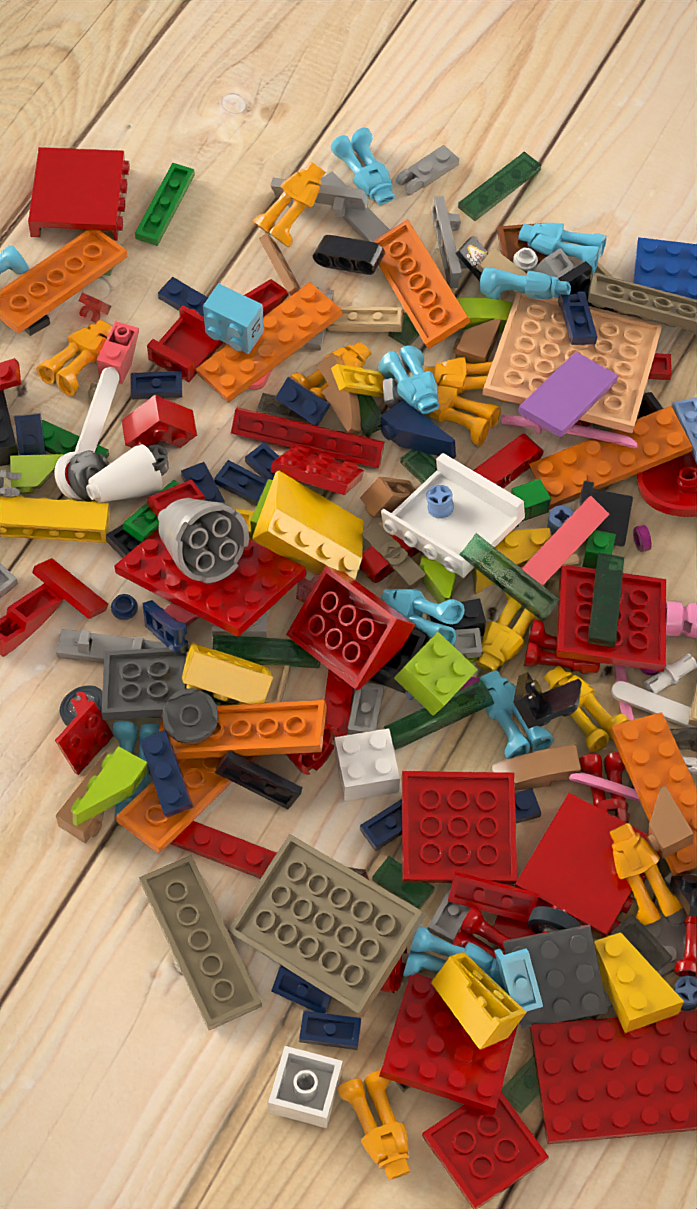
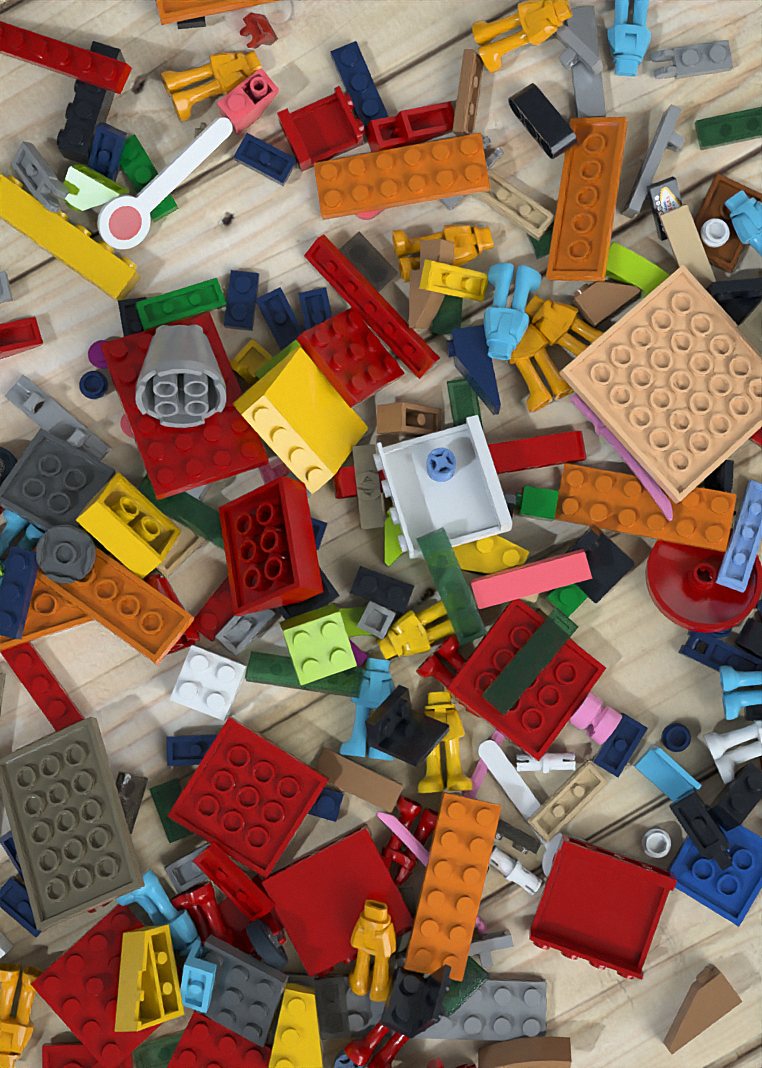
camera: 30 degrees right, 25 degrees up
(70, 588) = (54, 336): red tile -> none
(82, 468) = (138, 229): dark grey tile -> none
(115, 583) = (95, 355): none -> magenta plate
(126, 477) = (165, 253): white cone -> none
(159, 421) = (236, 211): red brick -> none
(161, 455) = (209, 240): dark grey wheel -> none
(163, 499) = (201, 304): red tile -> none
(165, 627) = (109, 439): dark blue plate -> none
(233, 318) = (368, 138): medium azure brick -> none
(258, 779) = (99, 643): black tile -> none
(303, 401) = (387, 268): dark blue plate -> none
(391, 396) = (480, 304): light grey plate -> none
(412, 605) = (345, 553): medium azure piece -> none
(534, 284) = (693, 277): medium azure piece -> none
(555, 264) = (733, 262): light grey panel -> none
(556, 516) = (549, 547): medium blue wheel -> none
(567, 394) = (638, 428): medium lavender tile -> none
(578, 318) = (713, 340): dark blue plate -> none
(642, 538) = (616, 608): magenta tile -> none
(668, 827) = (419, 930): medium nougat slope -> none

